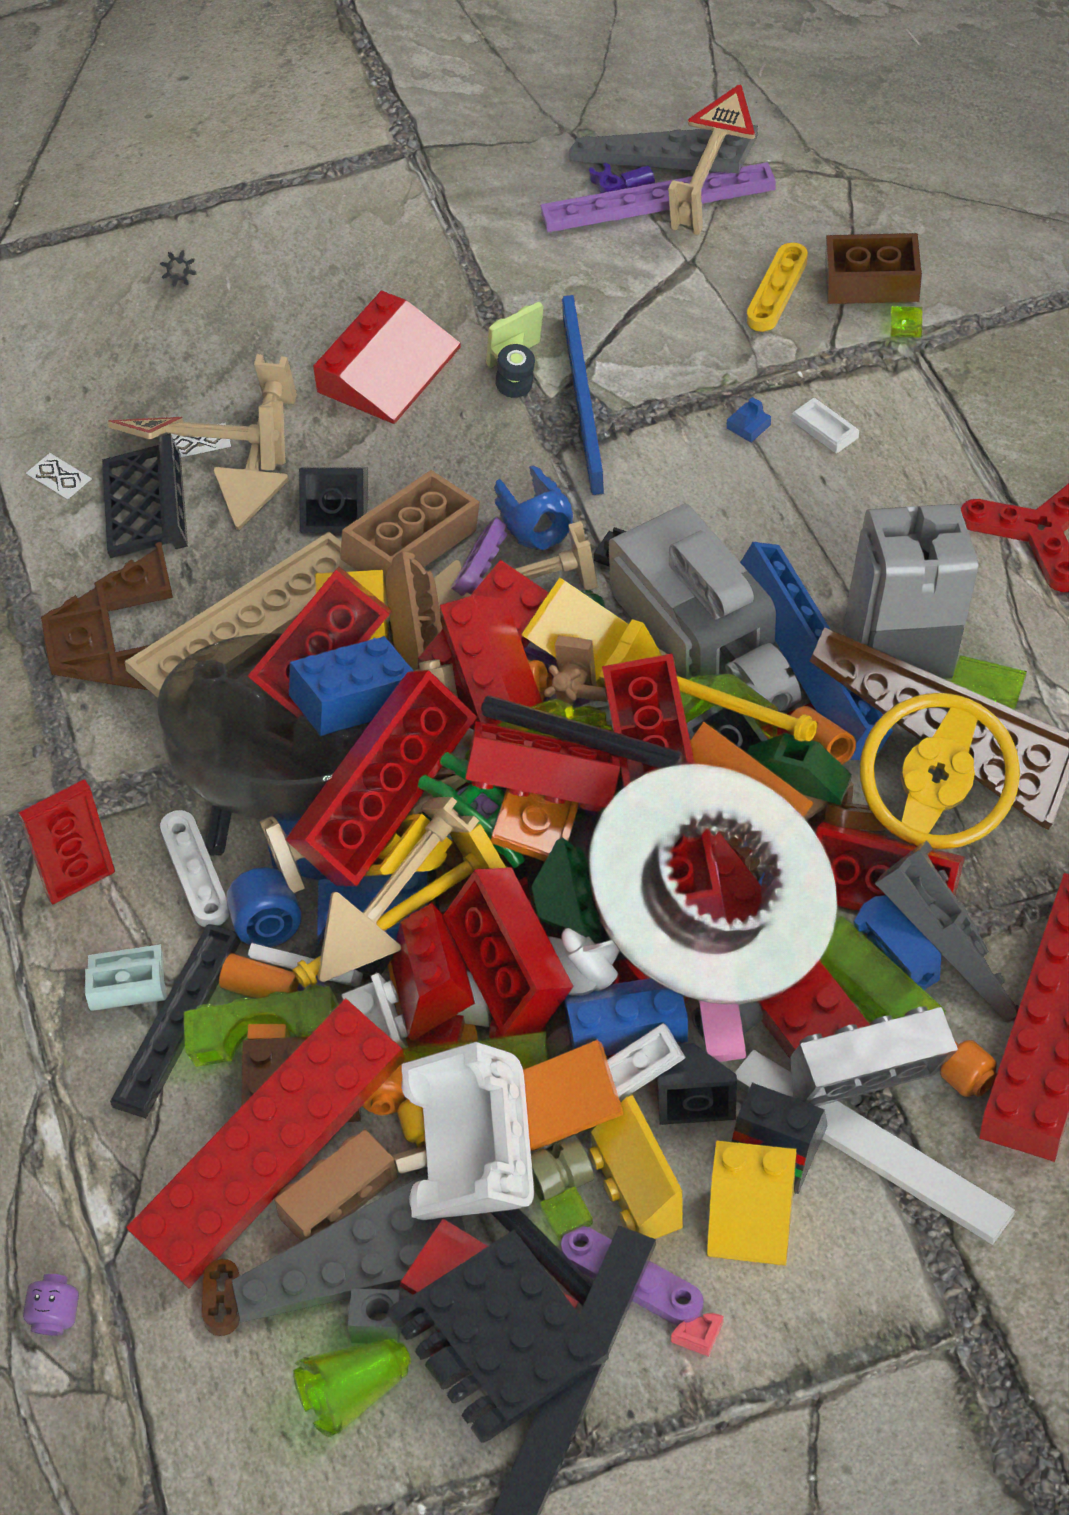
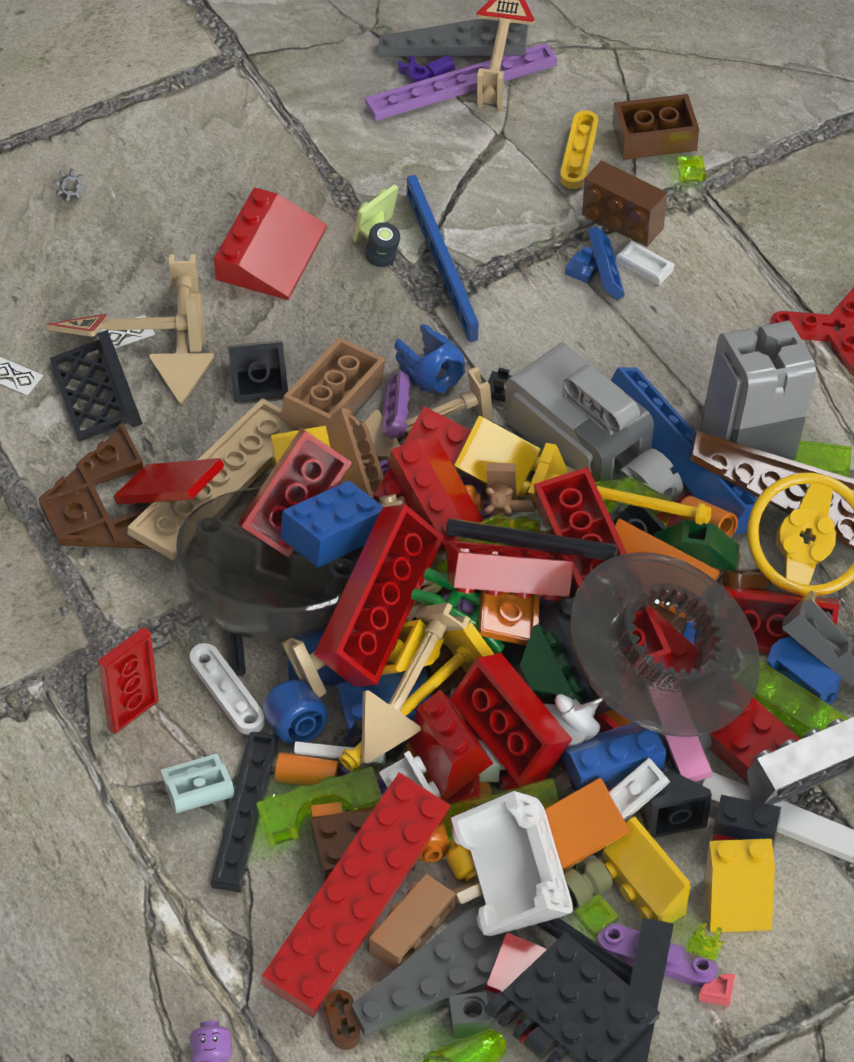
camera: 15 degrees left, 0 degrees up
(188, 614) = (169, 481): none -> red tile
(693, 1272) = (704, 945): none -> clear neon green tile
(776, 420) = (606, 263): none -> blue tile
(812, 352) = (624, 203): none -> reddish brown brick

